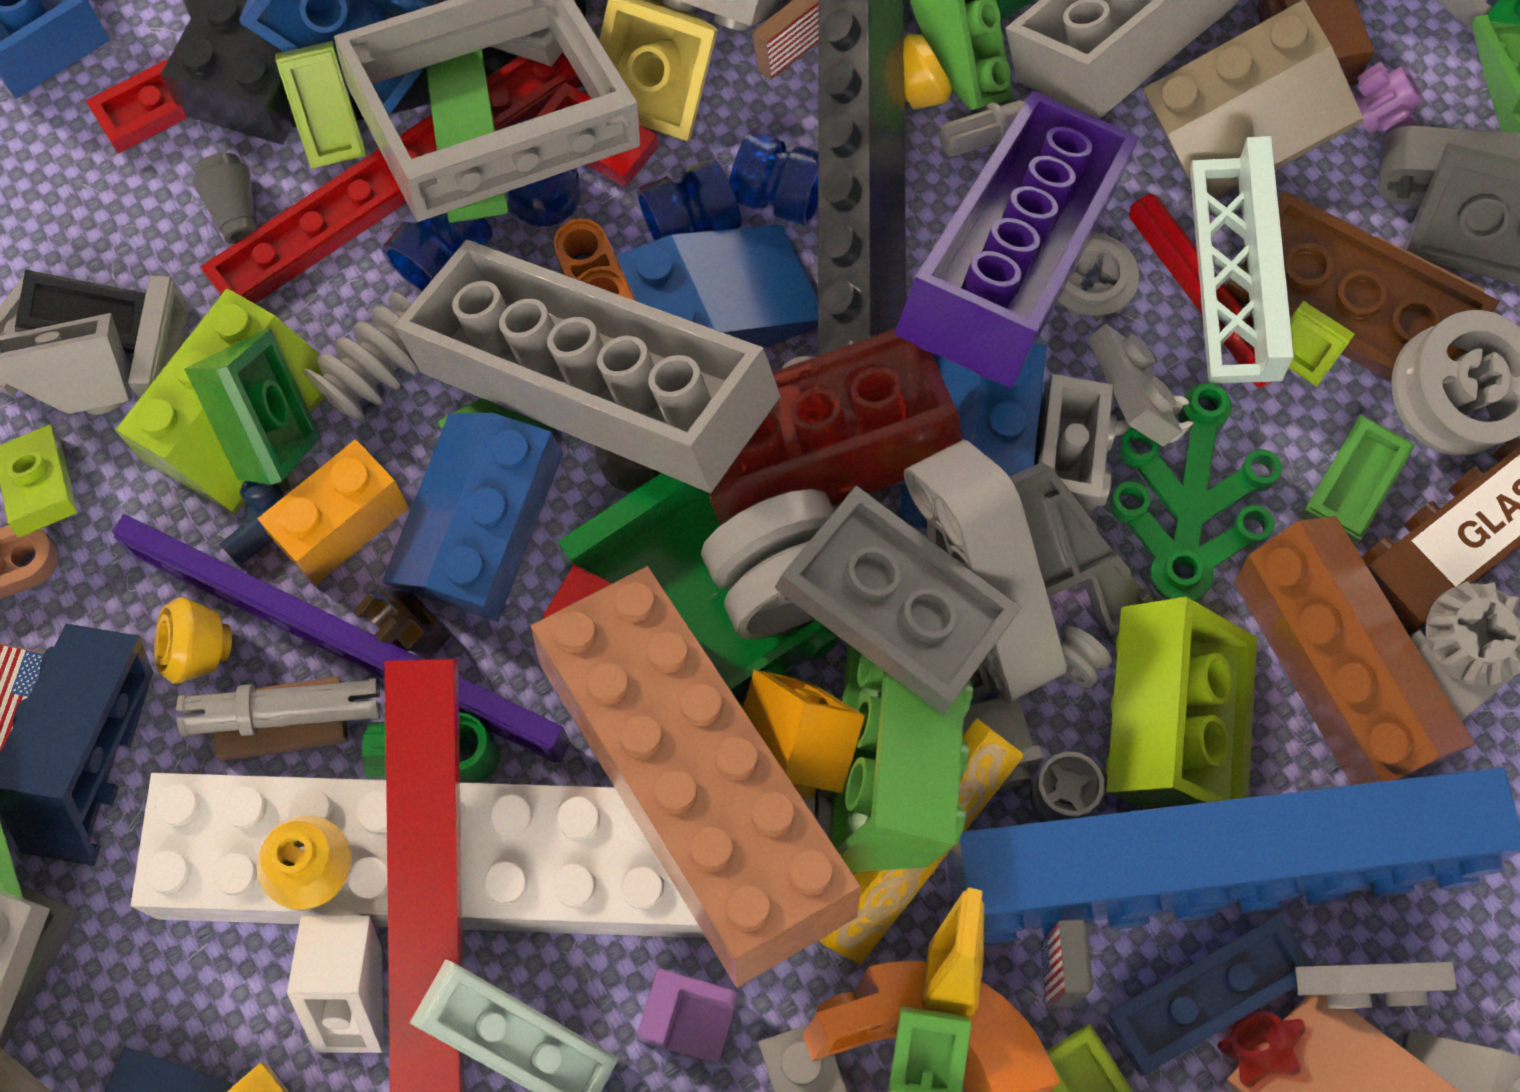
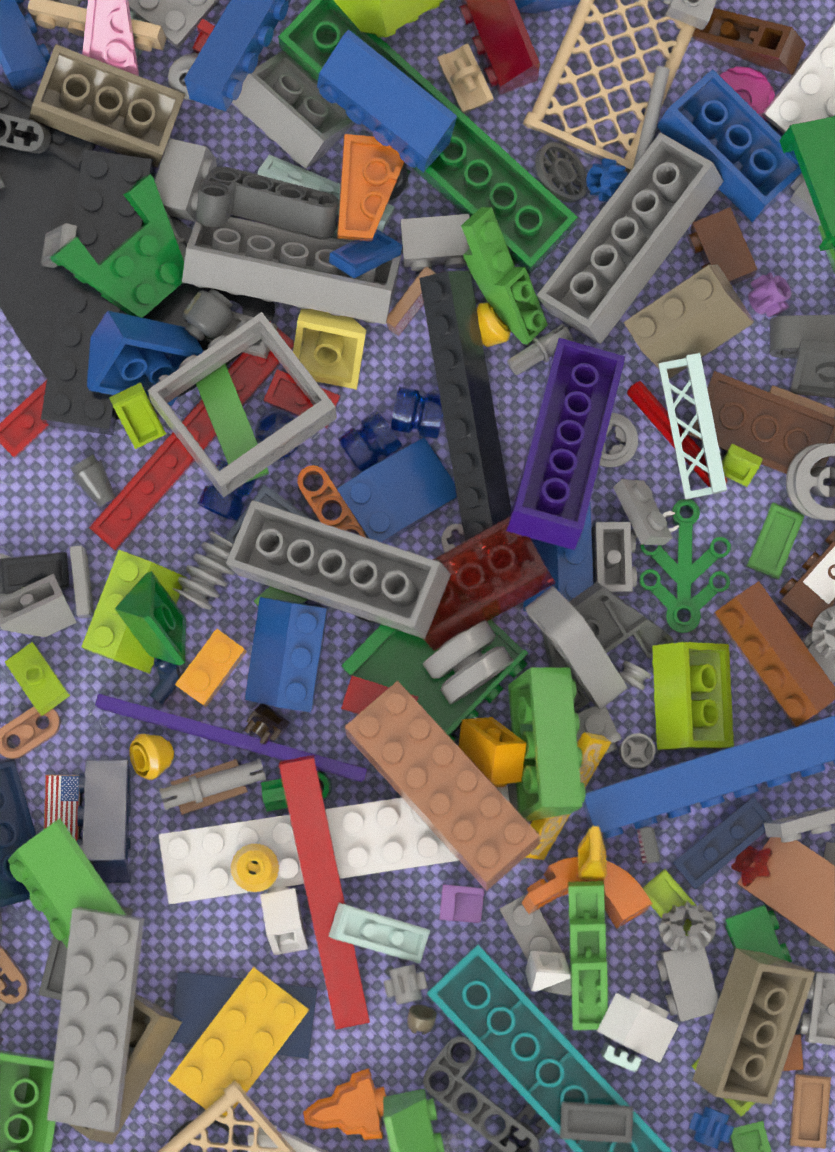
camera: 10 degrees left, 15 degrees up
(898, 599) = (534, 685): dark grey plate -> none

